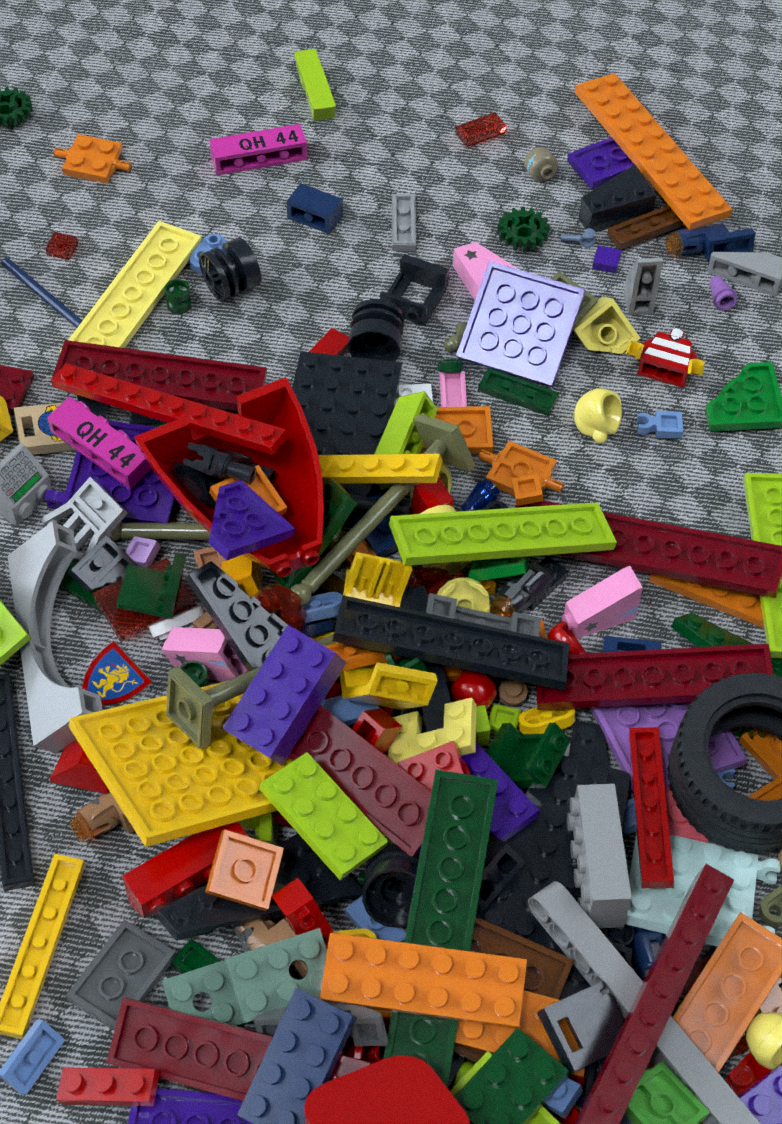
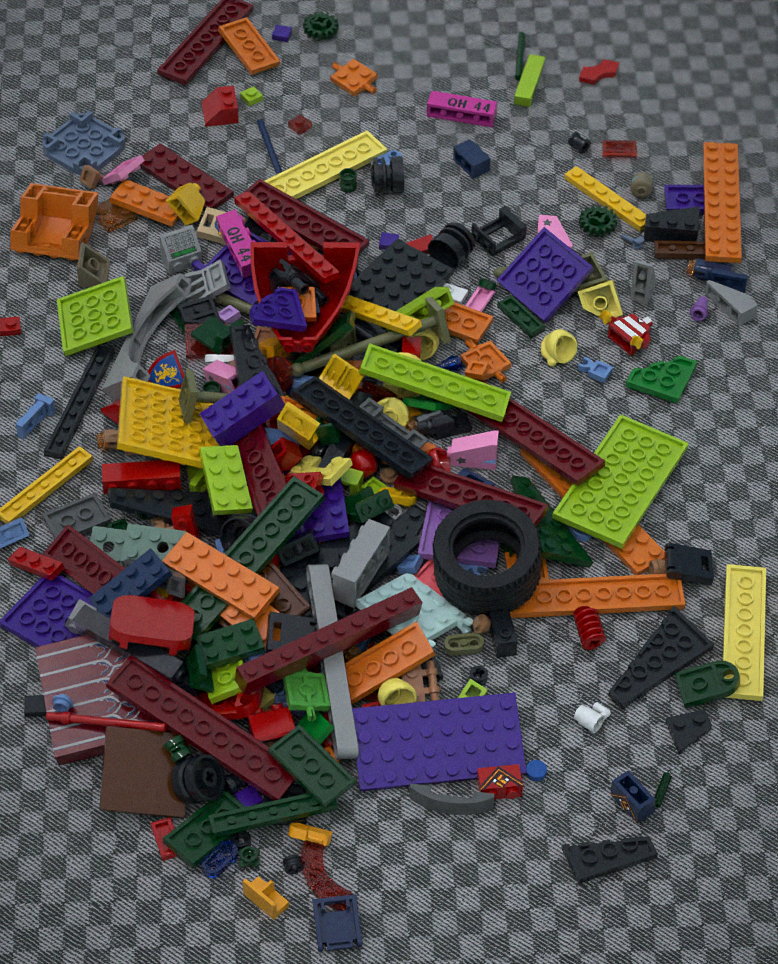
camera: 30 degrees right, 5 degrees down
(244, 870) = (166, 488): orange plate -> none
(283, 358) = (387, 239): none -> dark purple tile
(286, 69) = (520, 53): none -> dark green bar
(390, 42) = (595, 73): none -> red tile
(403, 222) = (525, 188): light grey tile -> none
(429, 139) = (579, 142): none -> black bush
(510, 196) = (606, 197): none -> yellow plate
(606, 259) = (642, 256): dark purple tile -> none
(650, 808) = (410, 562): red plate -> none

